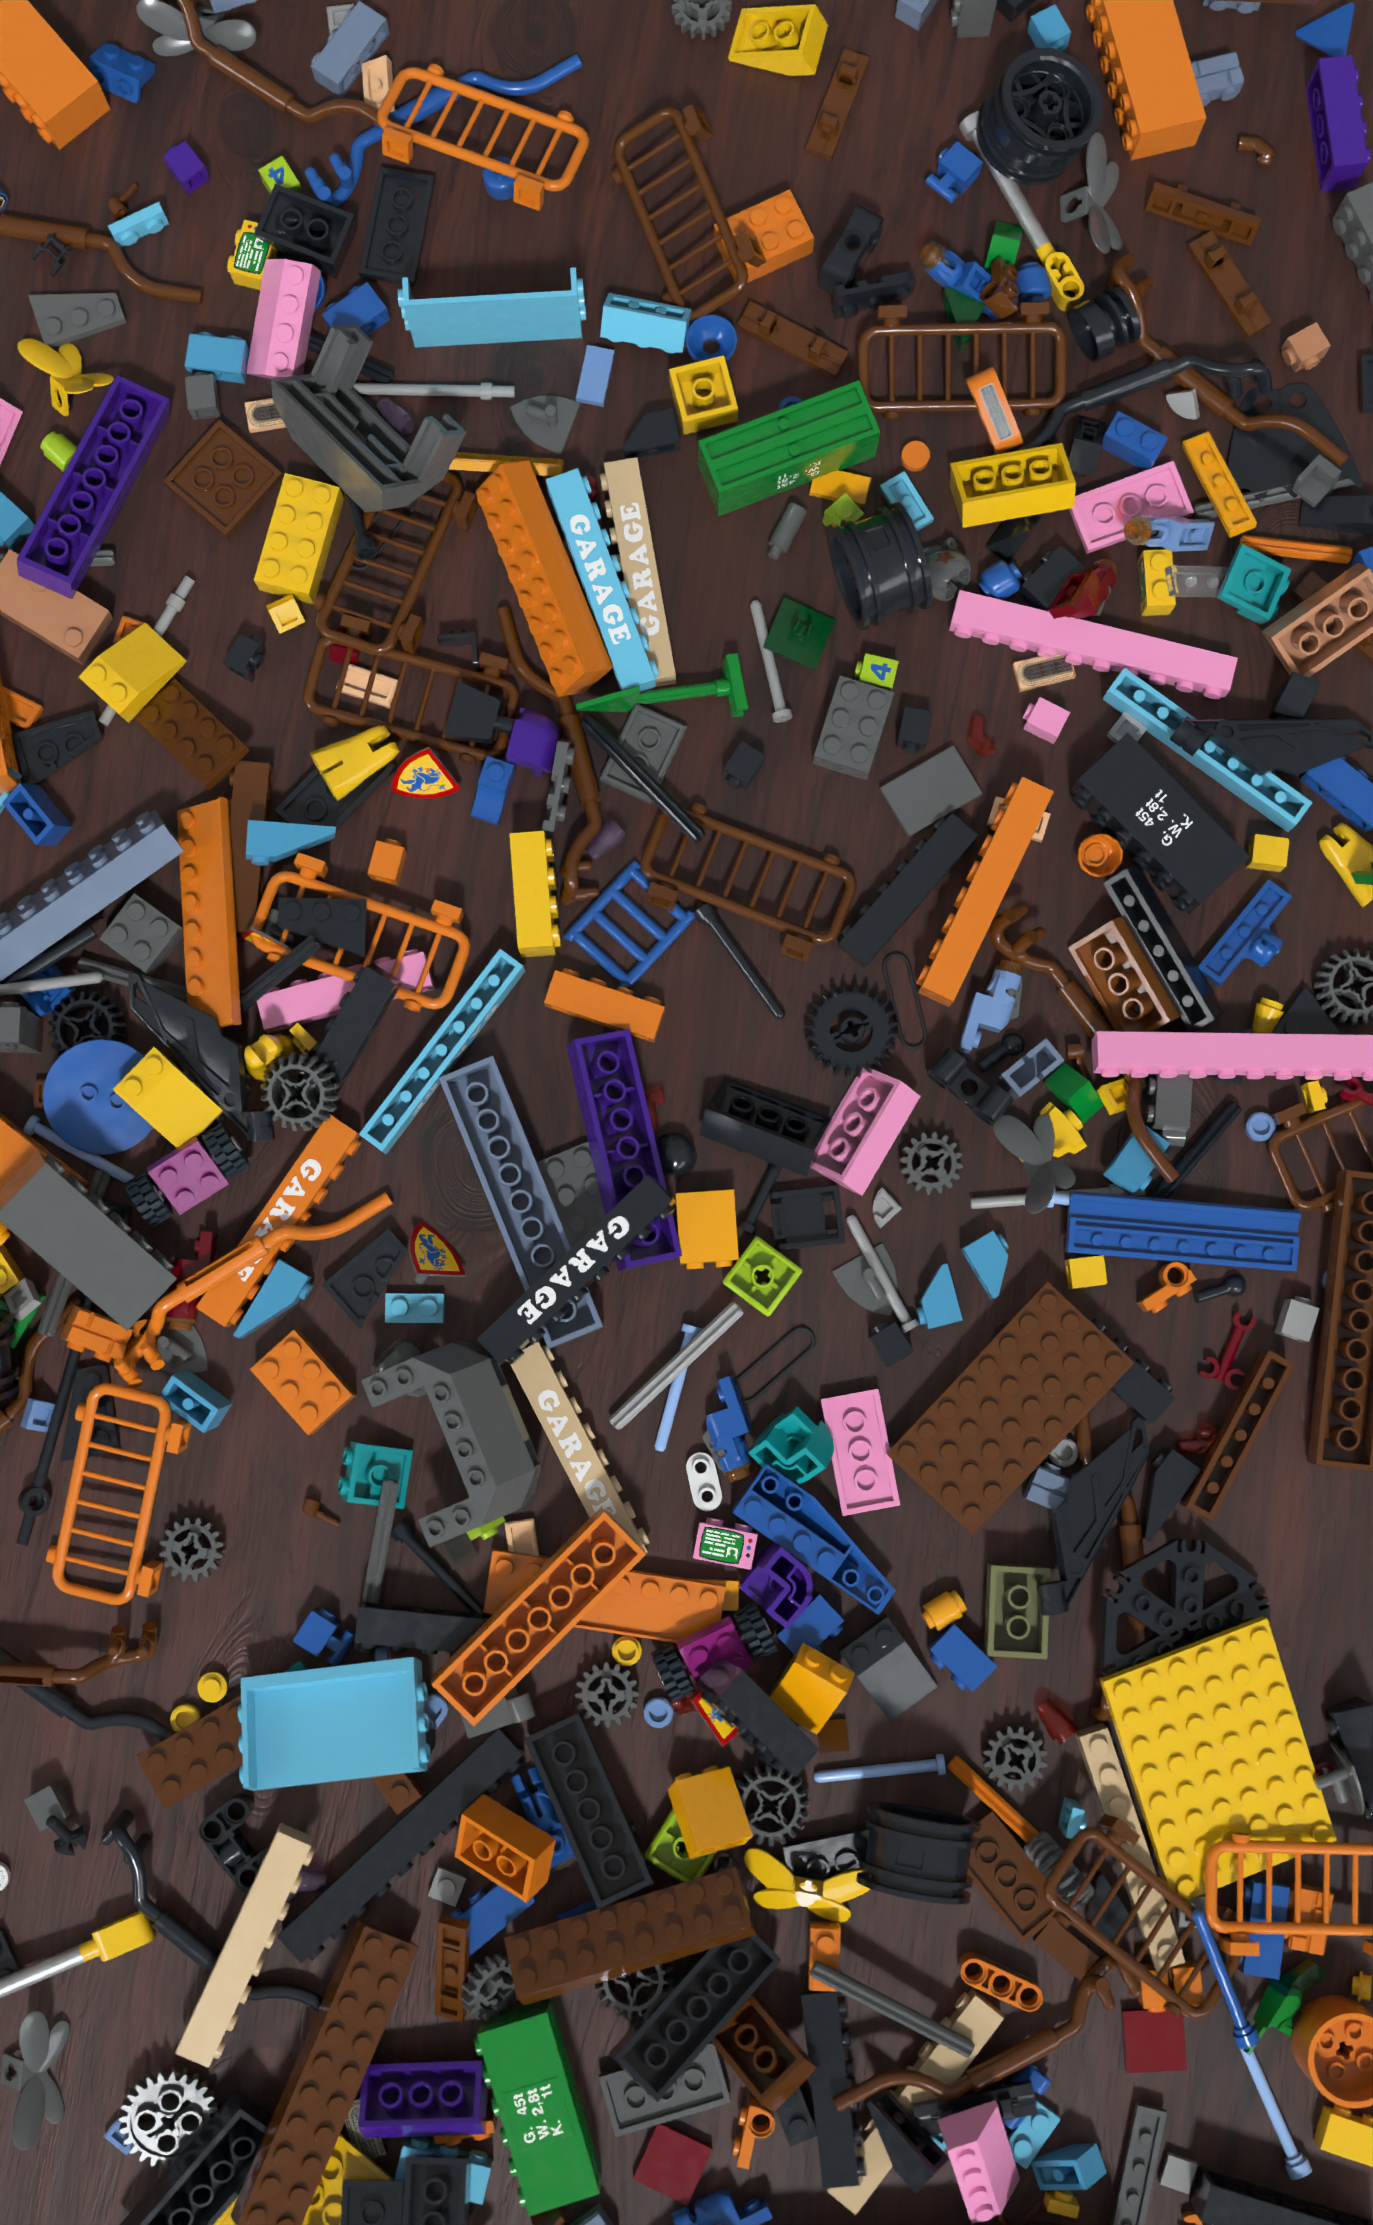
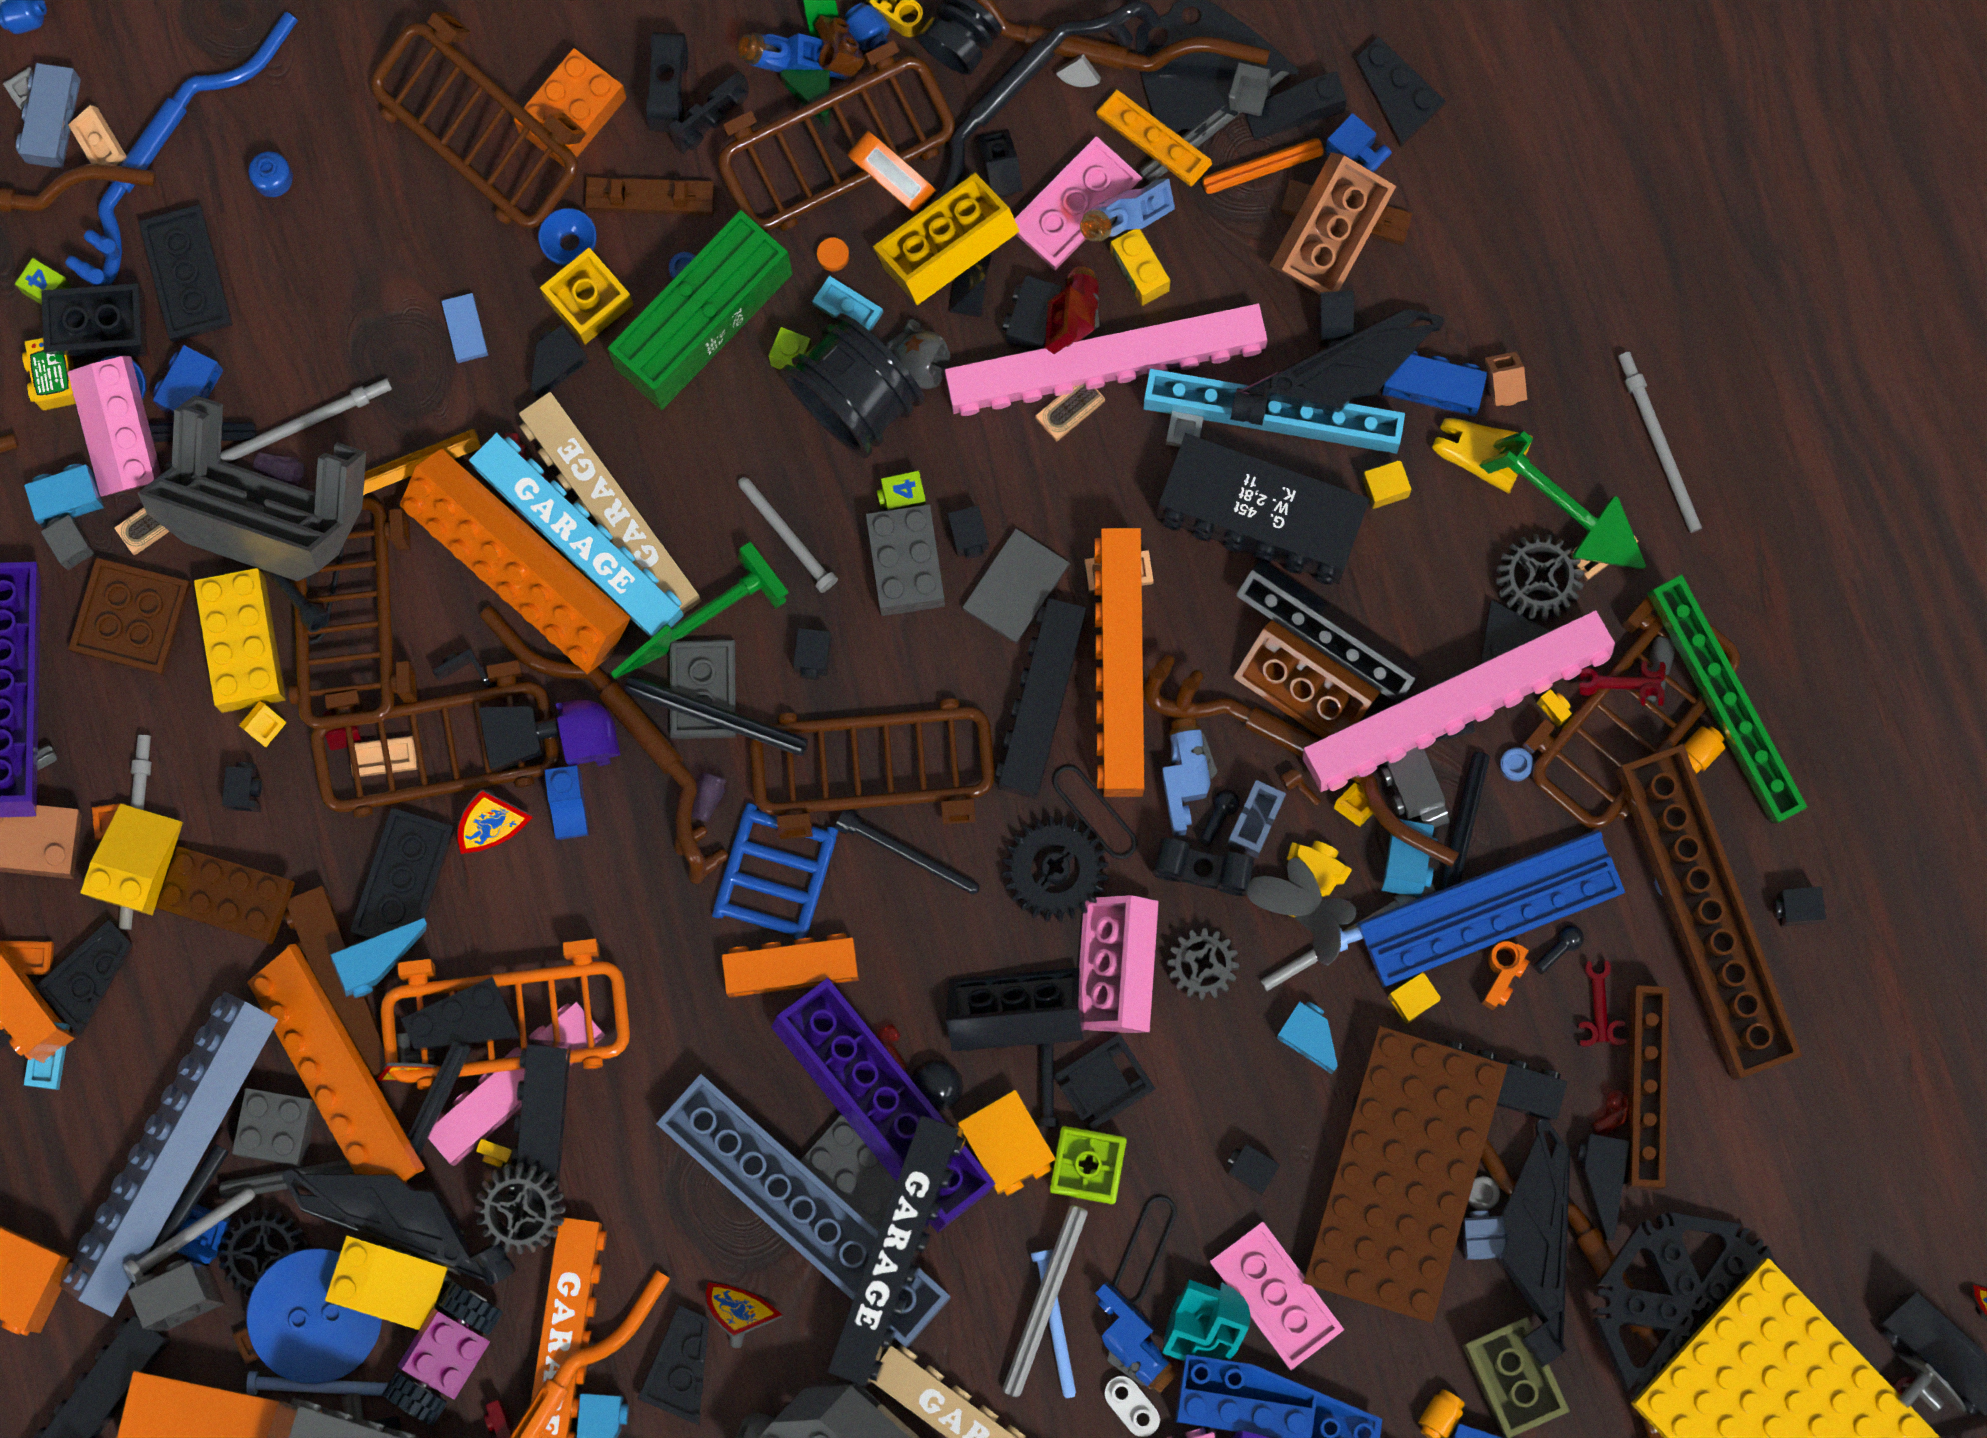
camera: 25 degrees left, 5 degrees down
(37, 814) = (103, 1056): blue brick -> none
(267, 1051) = (463, 1187): yellow piece -> none
(353, 760) = (407, 841): yellow piece -> none
(387, 861) = (493, 928): orange brick -> none
(414, 1308) = (745, 1375): medium azure plate -> none
(442, 1051) = (646, 1096): medium azure brick -> none
(494, 317) = (334, 320): medium azure panel -> none
(528, 187) = (305, 171): orange bar -> none
(532, 894) = (662, 891): yellow brick -> none
(546, 420) = (436, 396): dark grey shield -> none
(563, 757) = (635, 762): dark grey wing -> none
(645, 323) = (491, 251): medium azure brick -> none
(786, 530) = (738, 392): dark grey cylinder -> none
(799, 634) = (803, 490): dark green piece -> none
(838, 483) = (770, 318): light orange tile -> none
(862, 1285) = (1200, 1115): dark grey shield -> none
(874, 1262) = (1208, 1103): light grey bar -> none
(884, 1208) = (1177, 1033): light grey tile -> none
(939, 1301) = (1281, 1101): dark azure slope -> none
(978, 740) = (1039, 511): clear red arm -> none
(1000, 580) = (981, 339): blue head -> none
(1045, 719) = (1096, 458): bright pink brick -> none
(1074, 1092) = (1312, 821): green slope -> none
(1099, 855) = (1219, 568): orange hair -> none
(1133, 441) = (1047, 136): blue brick -> none
(1194, 580) = (1185, 244): clear tile -> none
(1248, 936) = (1408, 577): blue plate -> none
(1254, 584) = (1239, 222): teal plate -> none
(1266, 1016) = (1467, 649): yellow cone -> none
(1297, 1319) = (1650, 940): light grey brick -> none

